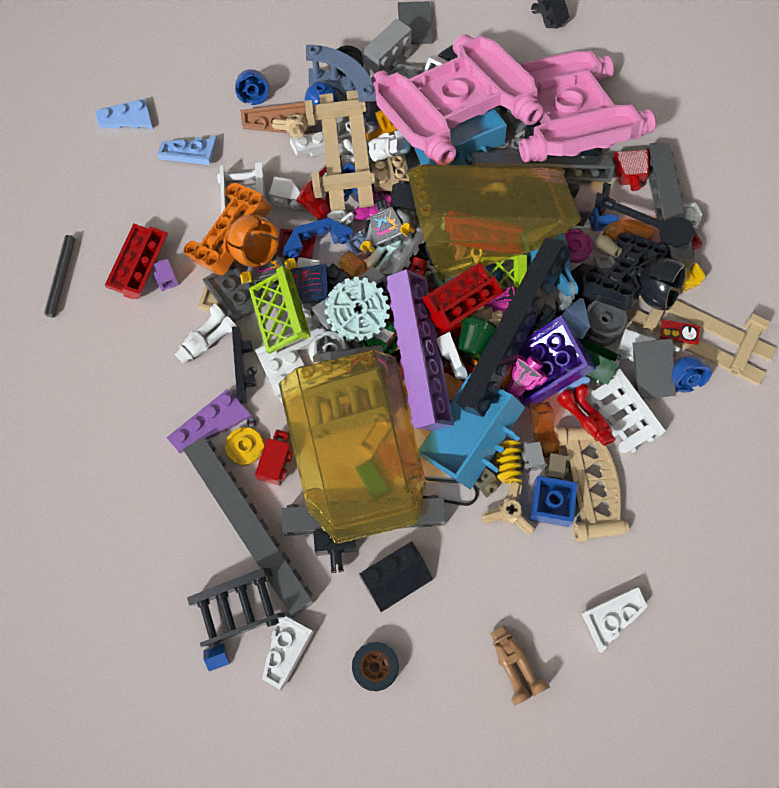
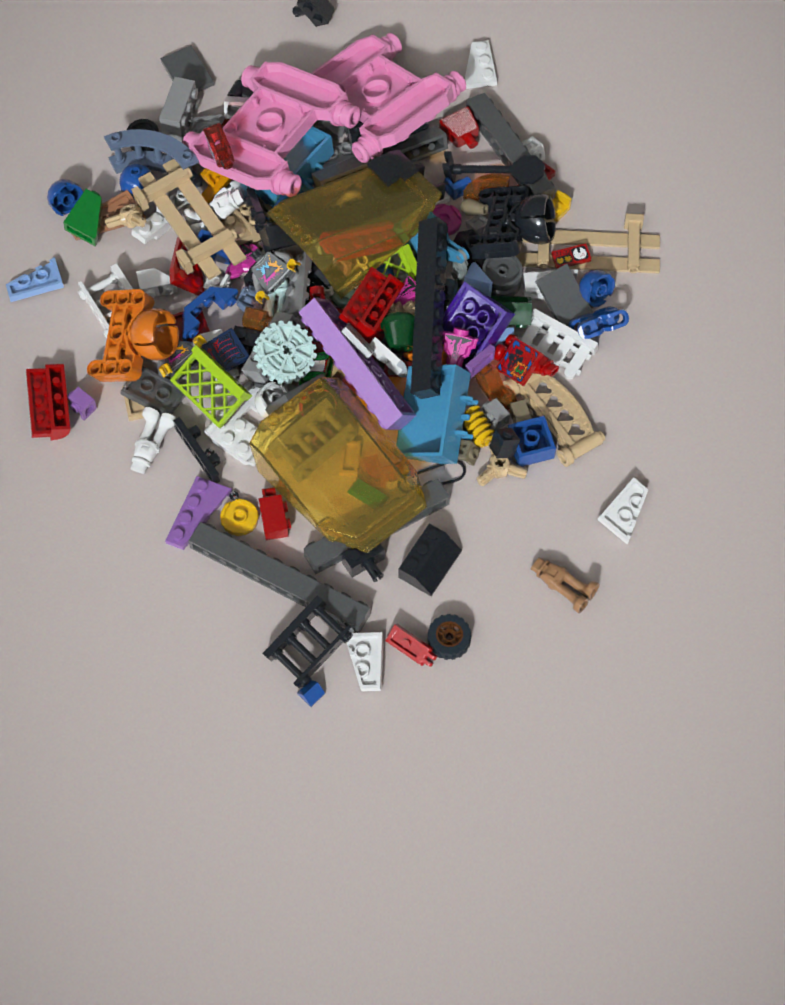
camera: 25 degrees left, 5 degrees down
(258, 110) = (85, 217): none -> green slope
(333, 658) = (411, 645): none -> hinge
(395, 99) = (221, 152): none -> clear red torso
(402, 167) = (255, 209): none -> black hinge
(429, 329) = (357, 340): none -> light grey tile
(524, 493) = (504, 443): none -> black brick
(541, 399) = (480, 360): none -> medium lavender tile
(546, 175) = (392, 167): none -> black slope
(578, 416) = (519, 361): none -> tile
(676, 120) = (480, 66): none -> white wing
(677, 411) = (599, 322): none -> blue piece

